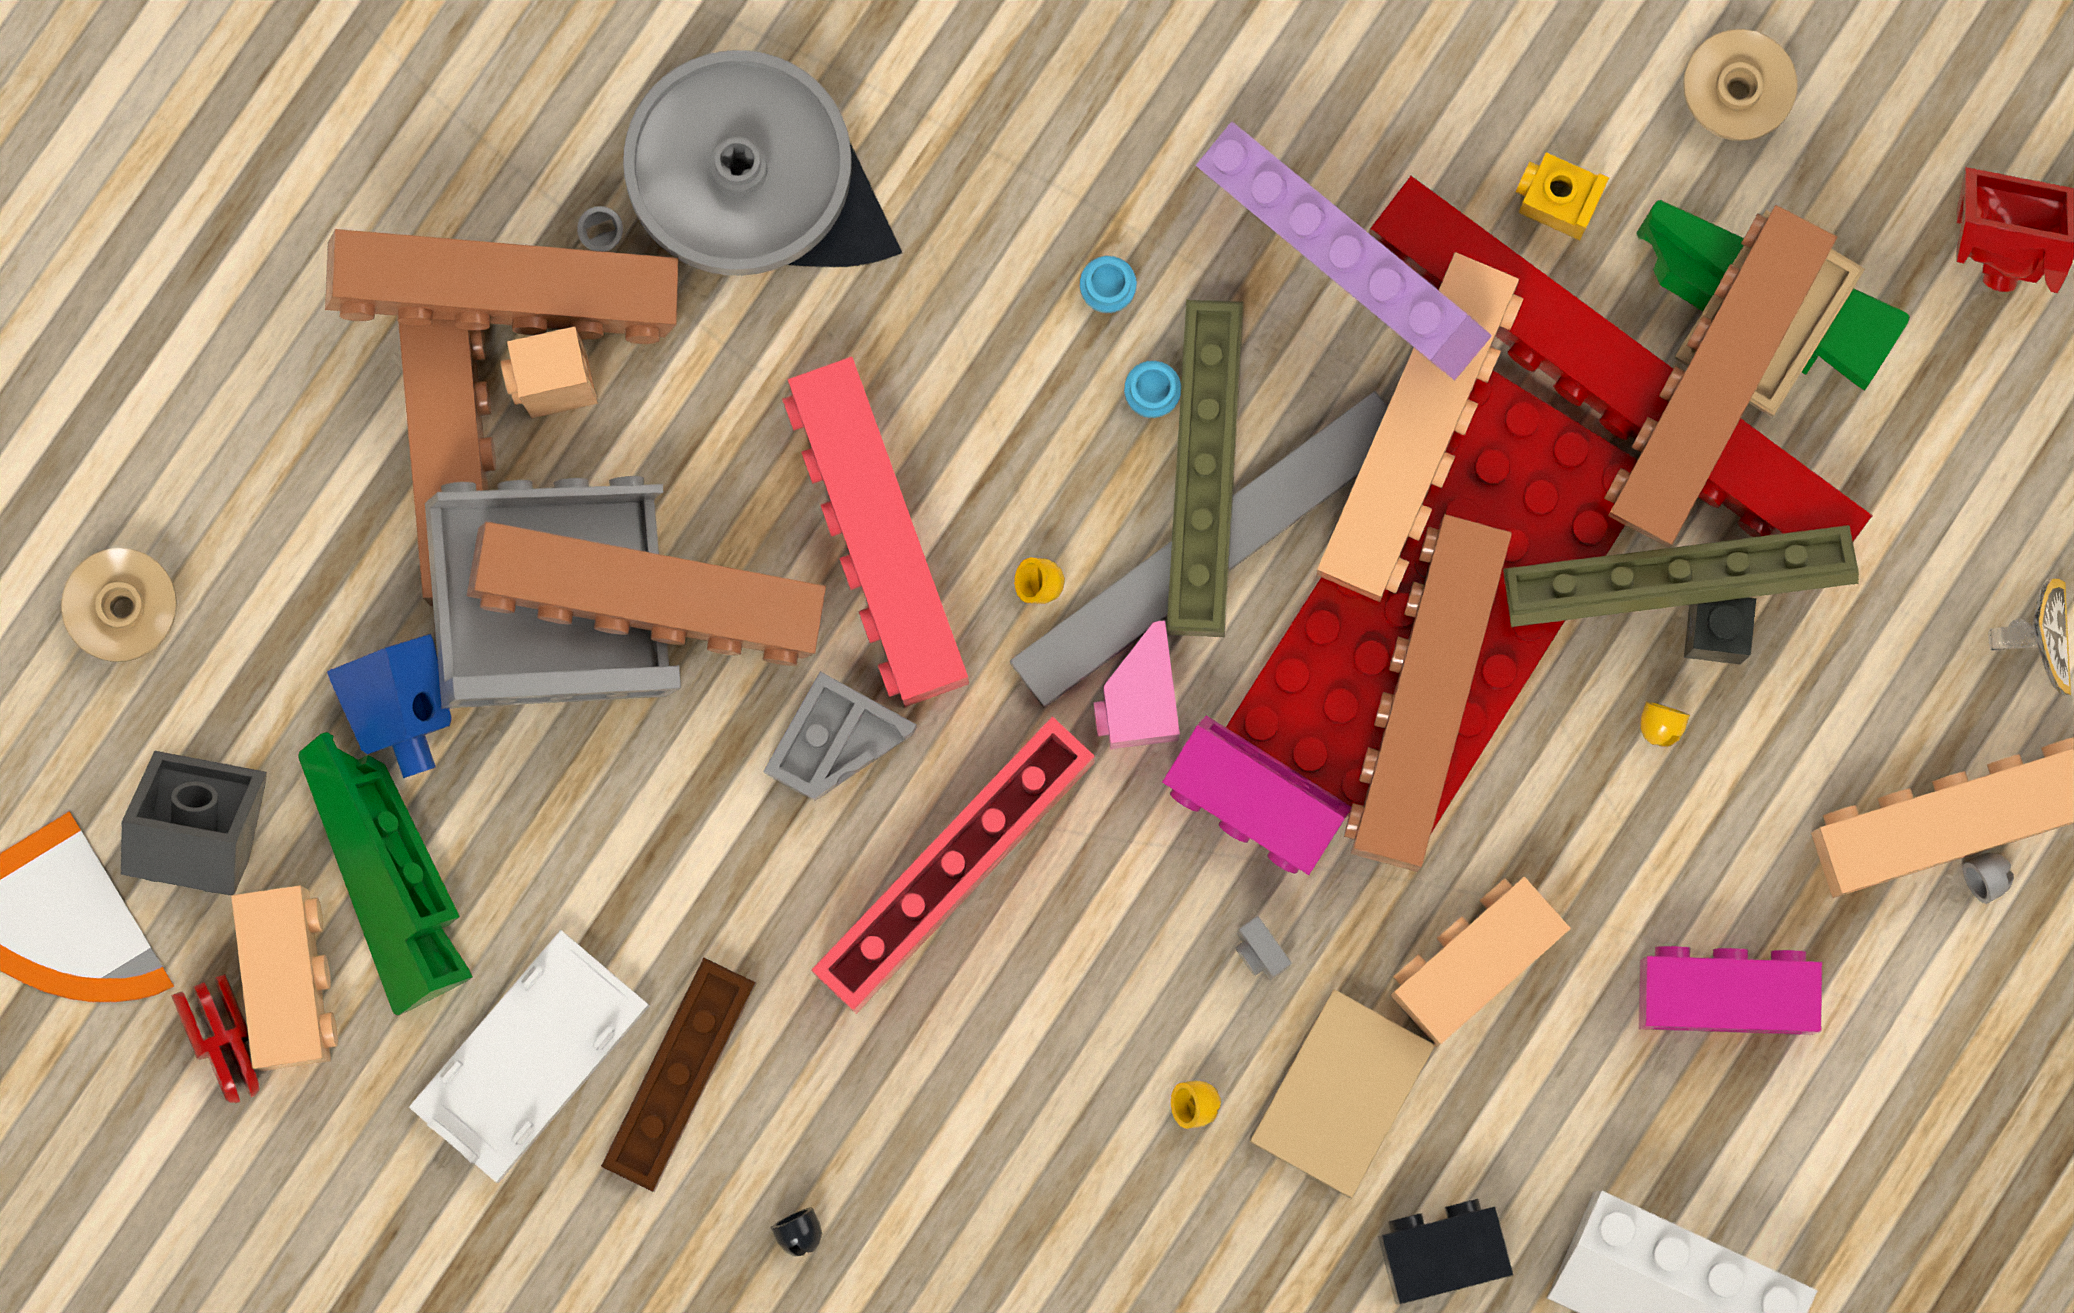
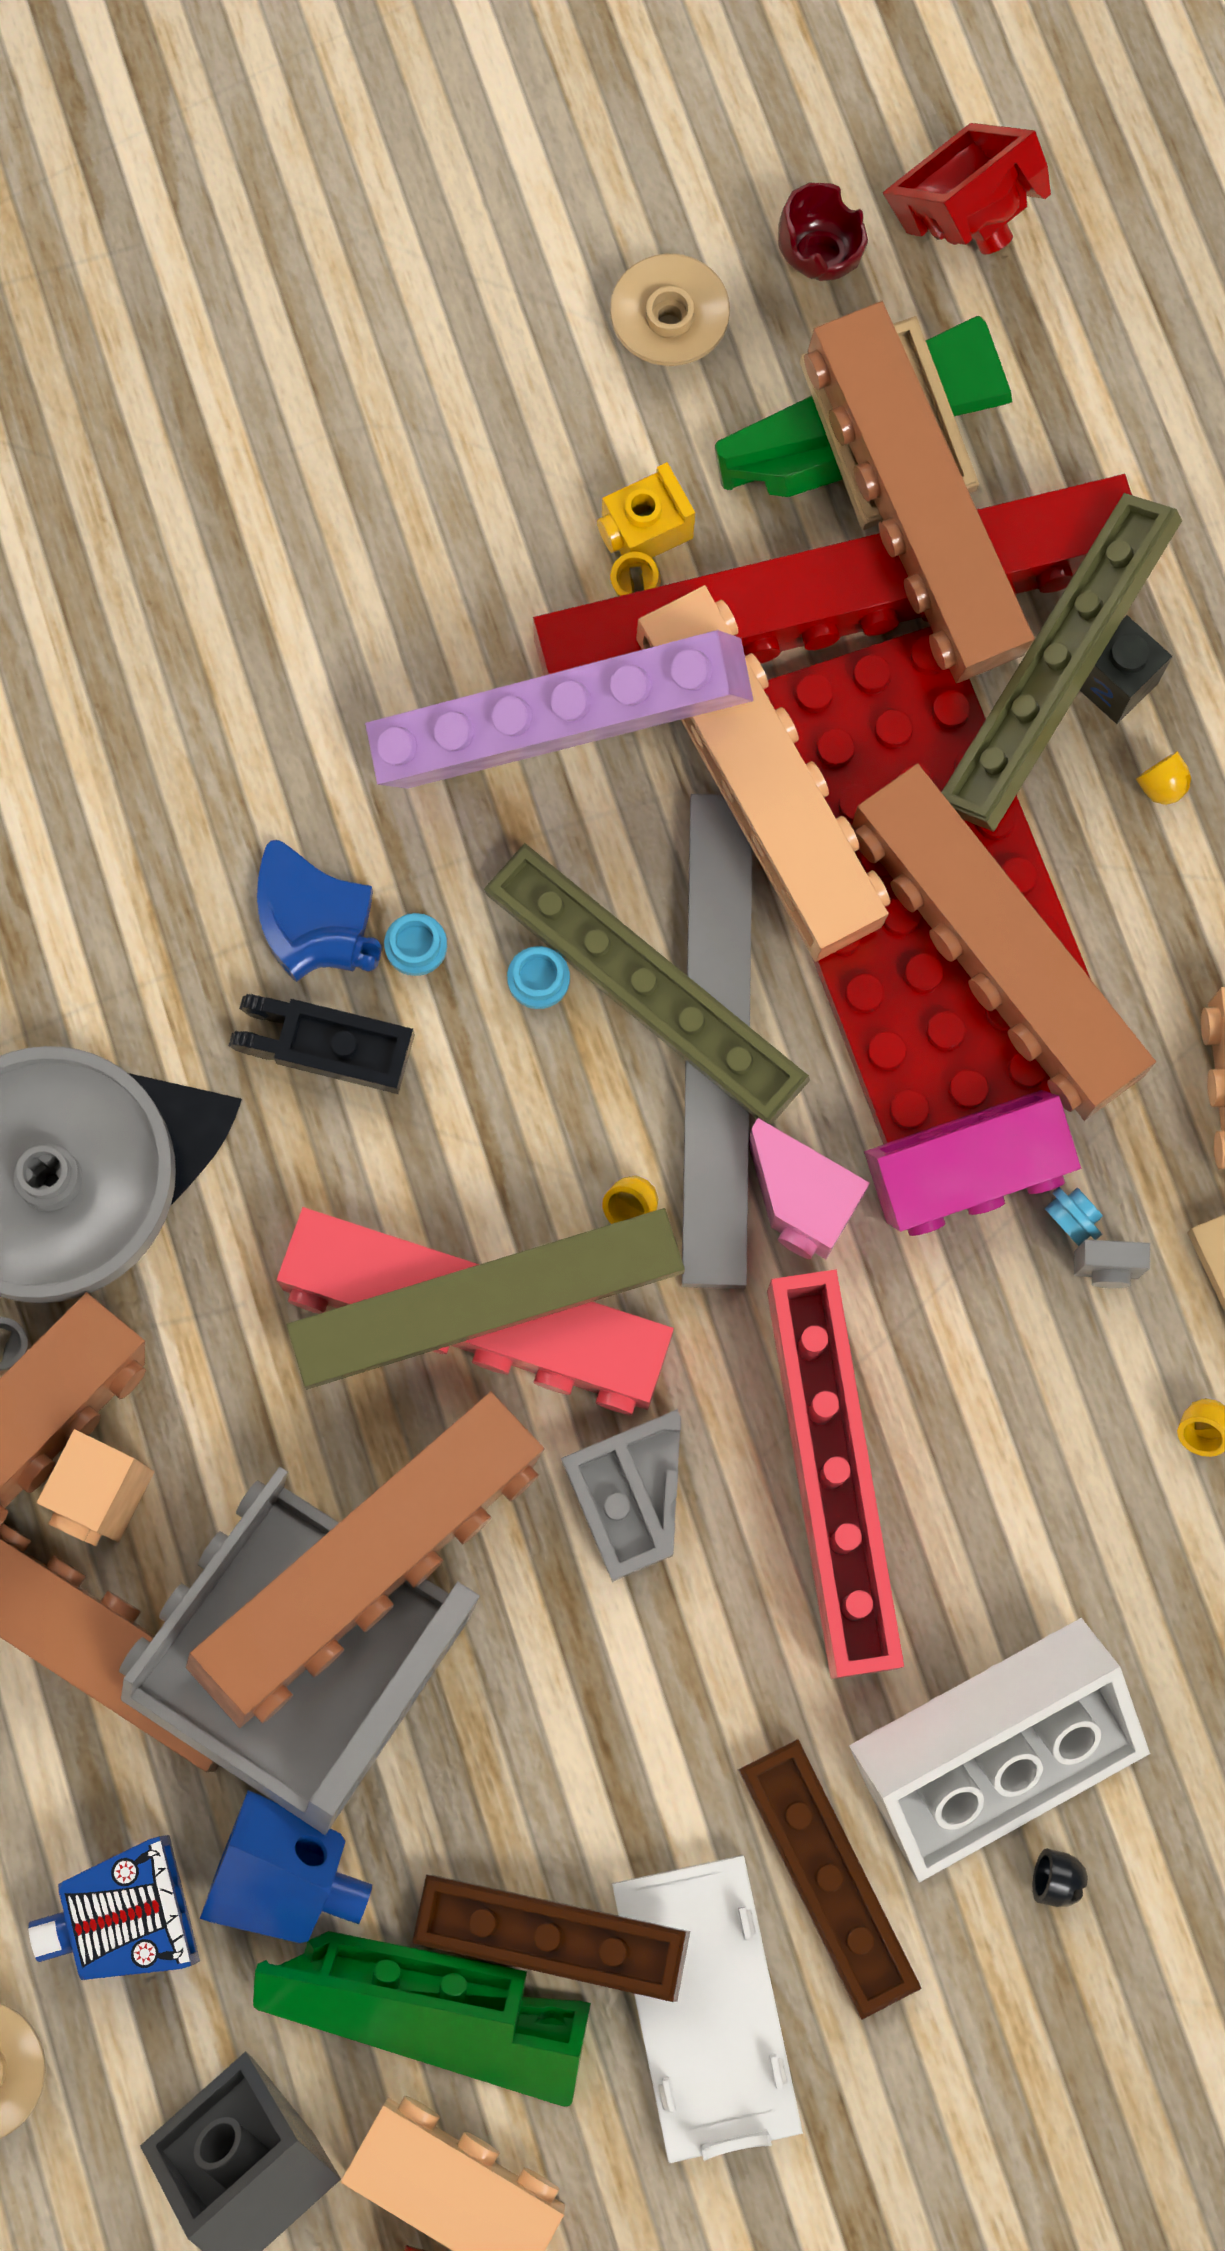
camera: 55 degrees left, 5 degrees down
(289, 619) = (121, 1916): none -> torso
(493, 914) = (552, 1937): none -> reddish brown tile
(854, 1125) = (1001, 1748): none -> white slope
(885, 532) = (485, 1298): none -> olive tile
(988, 282) = (328, 1042): none -> black hinge
(1071, 195) = (312, 916): none -> blue arm
(1276, 898) = (1075, 1215): none -> medium azure plate
(1501, 215) = (621, 574): none -> yellow hinge
(1893, 148) = (821, 233): none -> dark red hair

